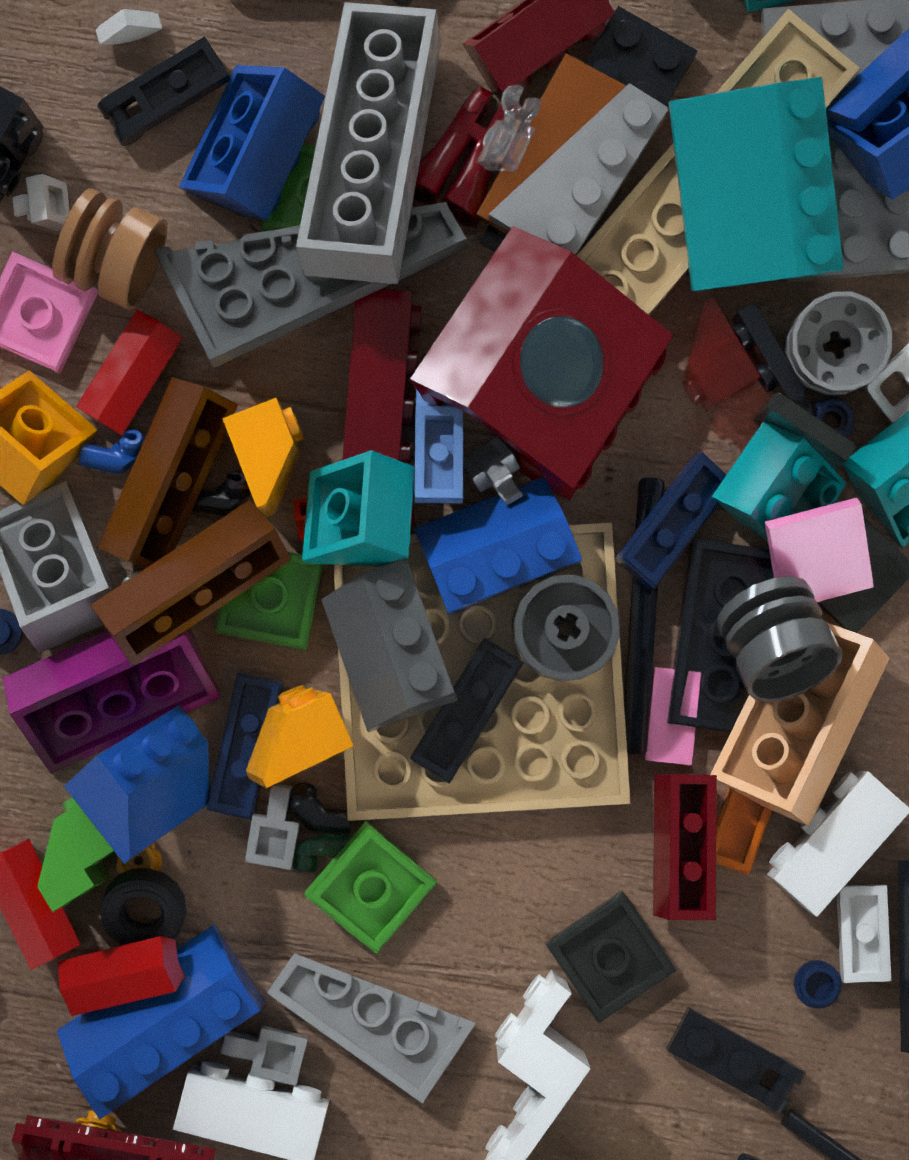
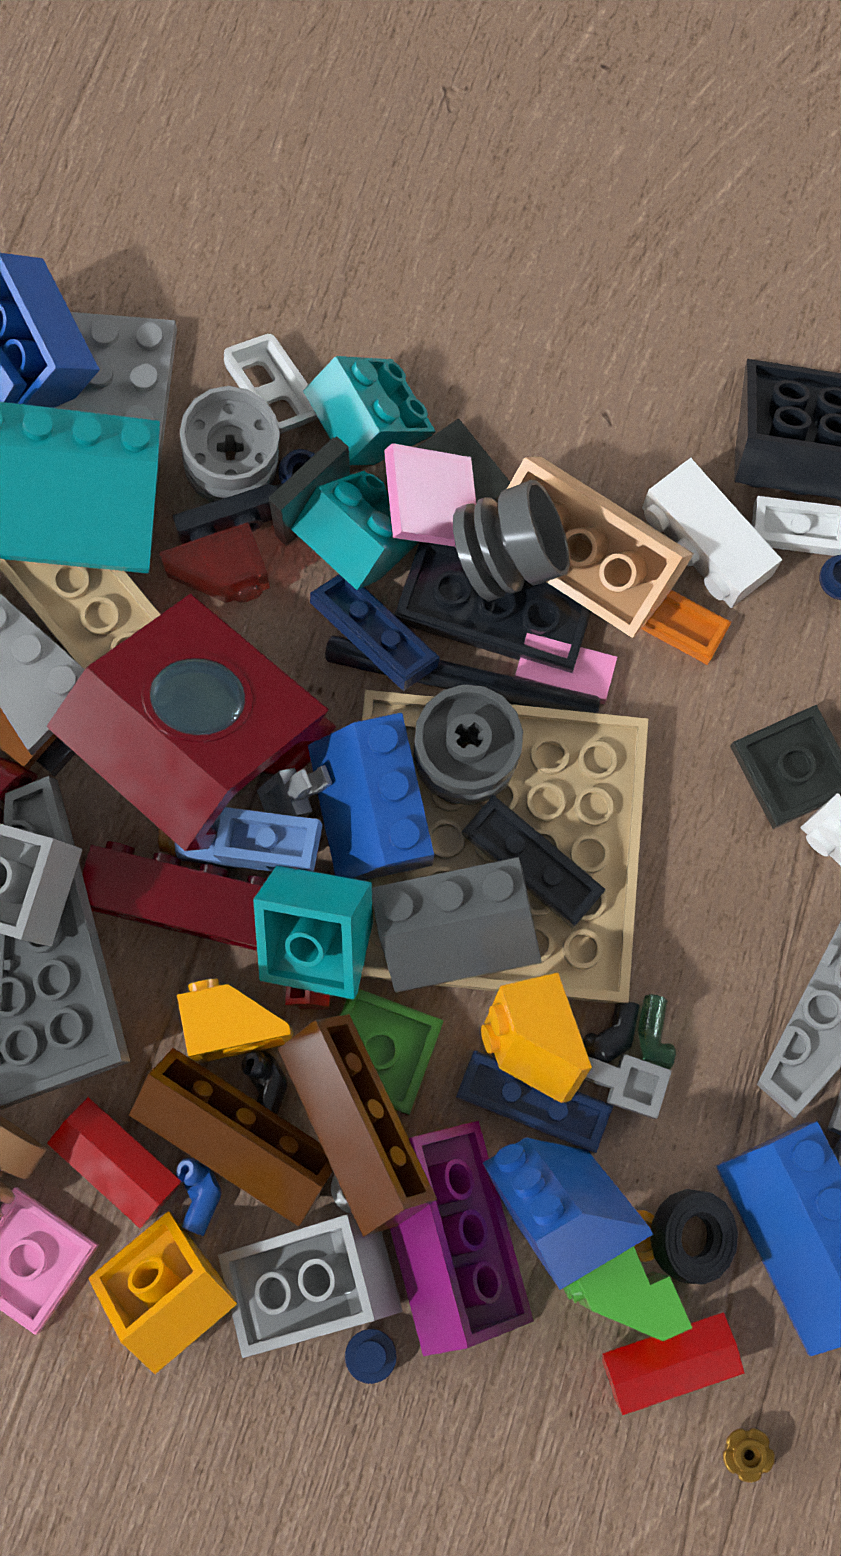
camera: 90 degrees left, 10 degrees down
(120, 975) = (763, 1272): red piece -> none
(370, 887) = (699, 991): bright green tile -> none
(684, 846) = (698, 671): dark red brick -> none

